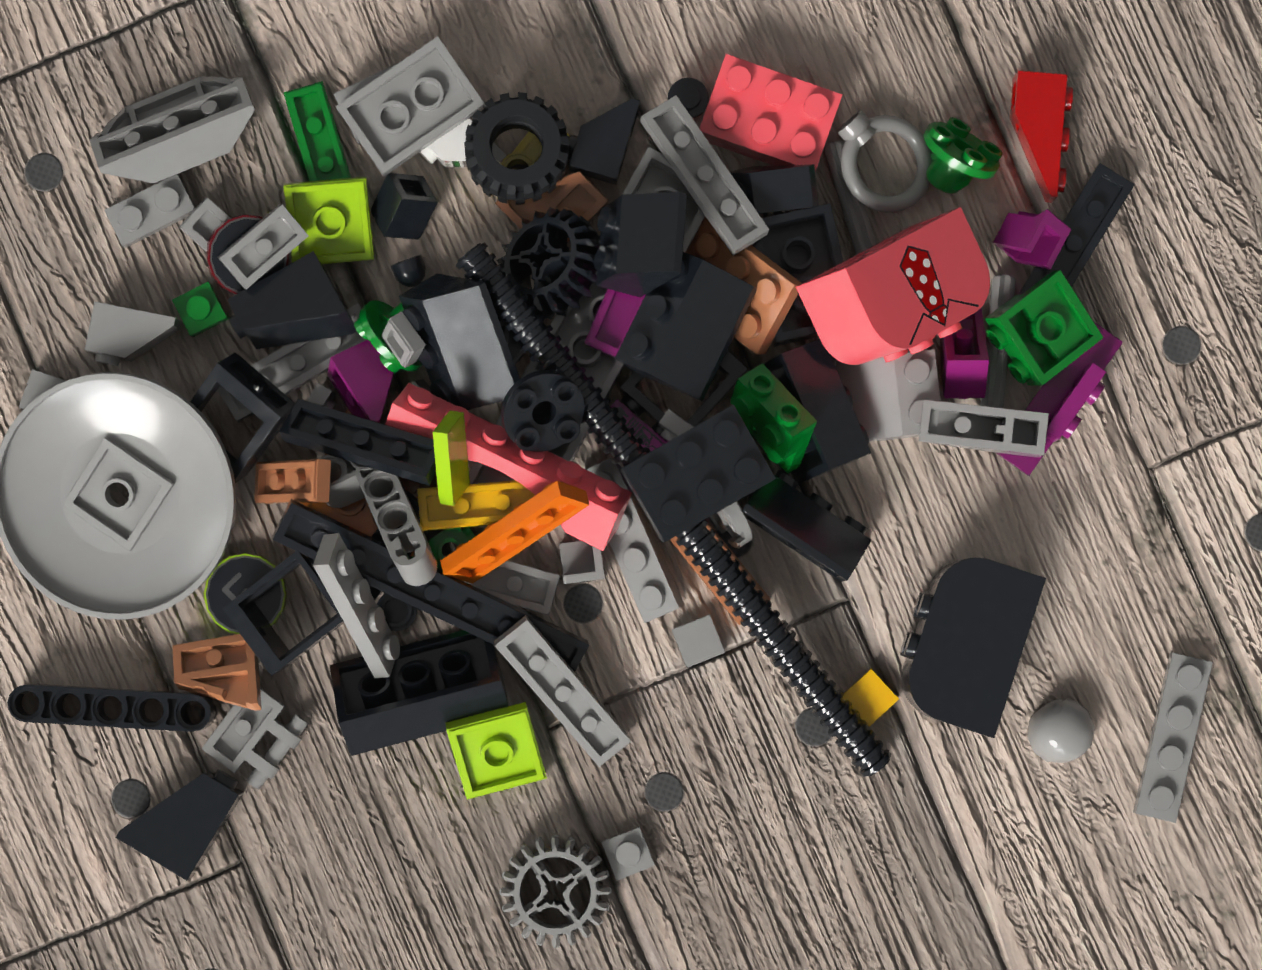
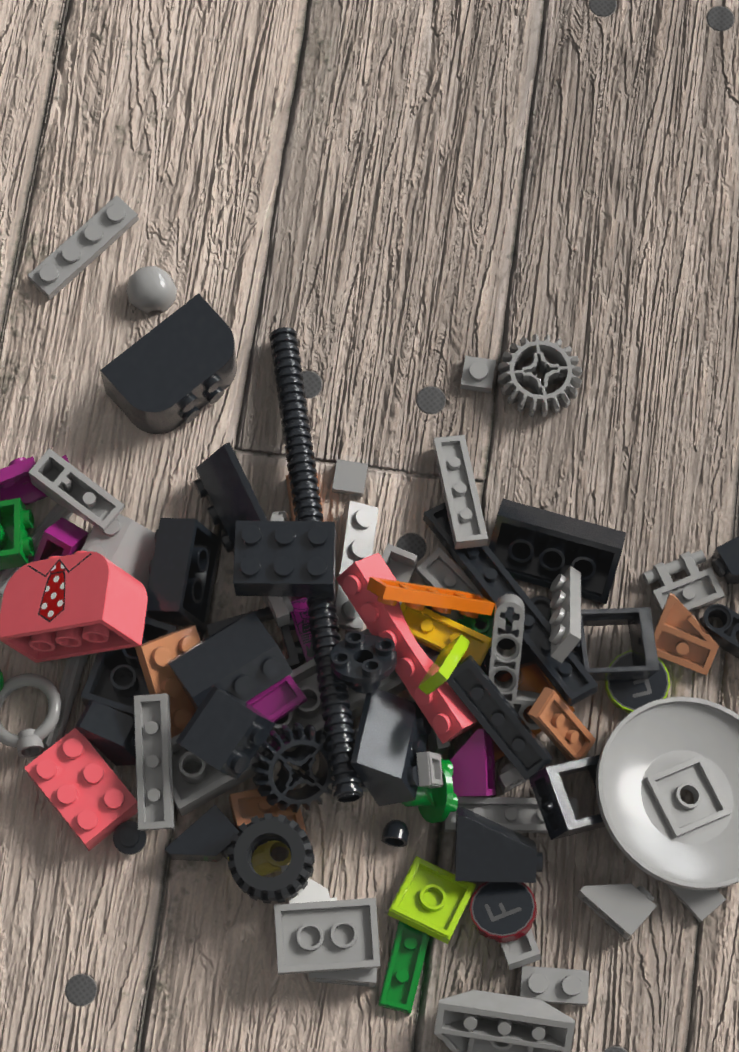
camera: 150 degrees left, 15 degrees down
(200, 309) = (558, 894): green plate -> none
(263, 246) = (489, 903): light grey plate -> none
(403, 206) = (373, 878): black panel -> none
(496, 750) = (526, 482): lime tile -> none
(773, 417) = (210, 579): green plate -> none
(870, 697) = (260, 379): yellow tile -> none

